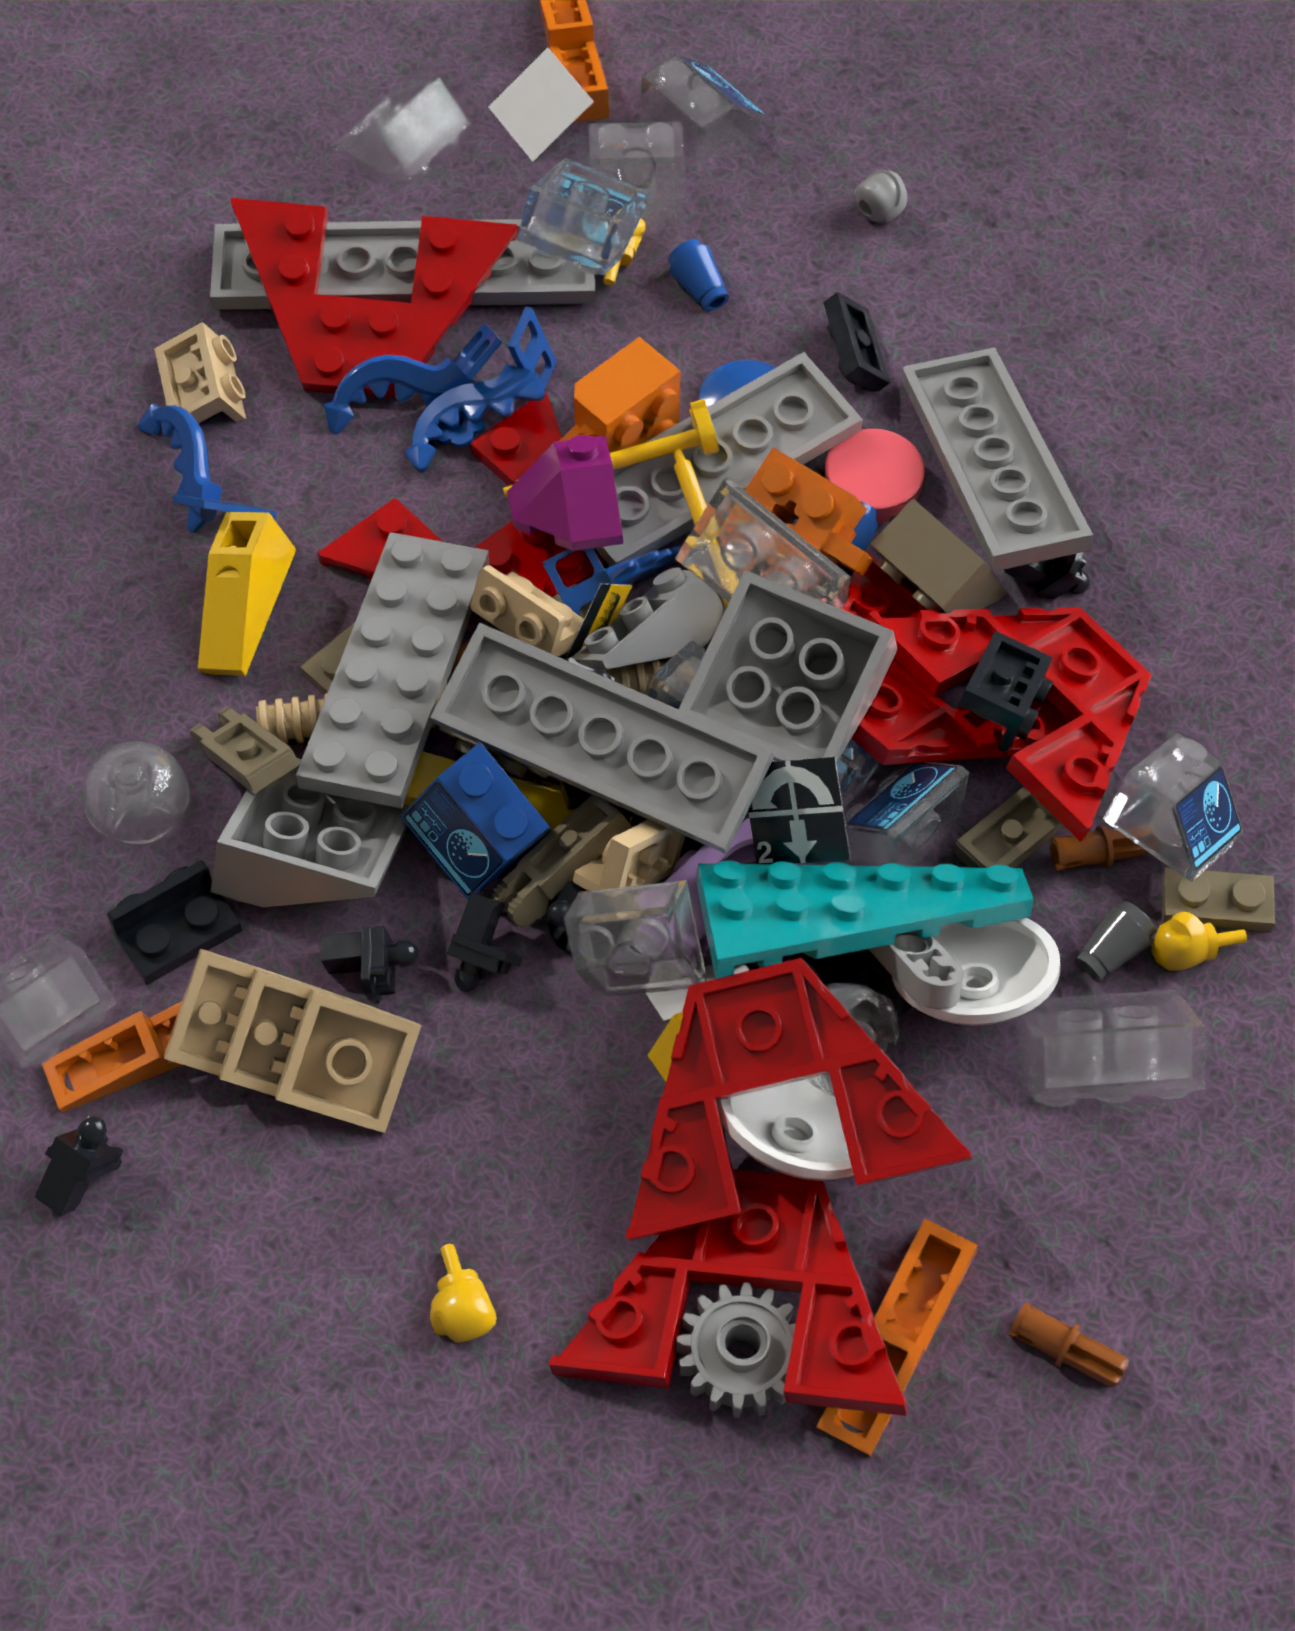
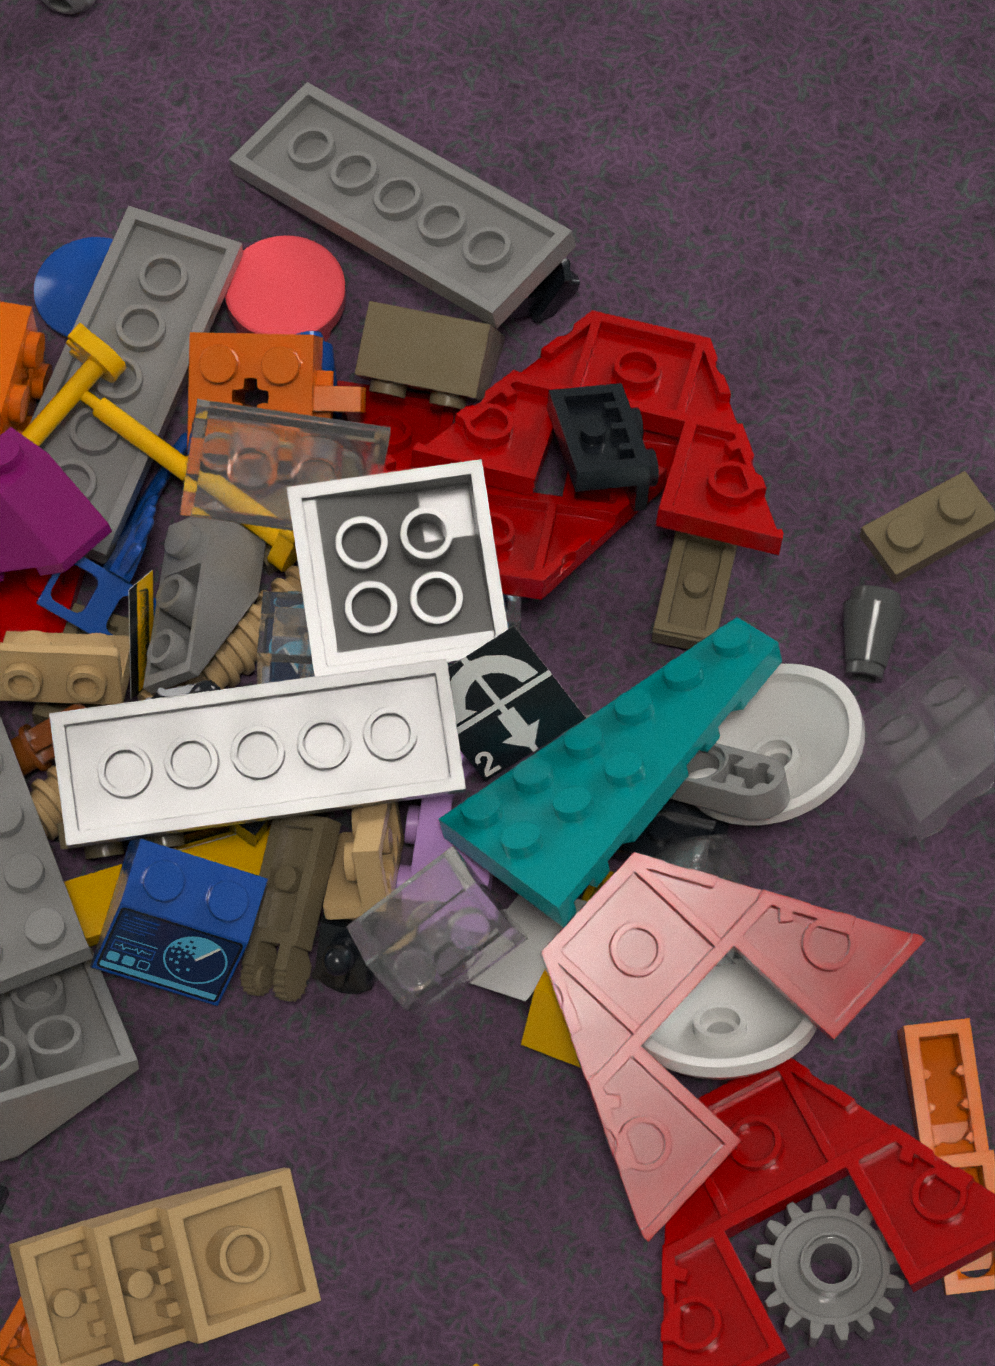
camera: 35 degrees left, 5 degrees up
(372, 955) = (166, 1126): black piece -> none
(473, 943) = (269, 1053): black piece -> none
(856, 343) = (160, 158): black plate -> none
(907, 815) = (591, 630): clear slope -> none
(1098, 847) = (800, 532): dark orange axle -> none
(1178, 807) = (838, 460): clear slope -> none
(1188, 942) = (937, 588): yellow piece -> none

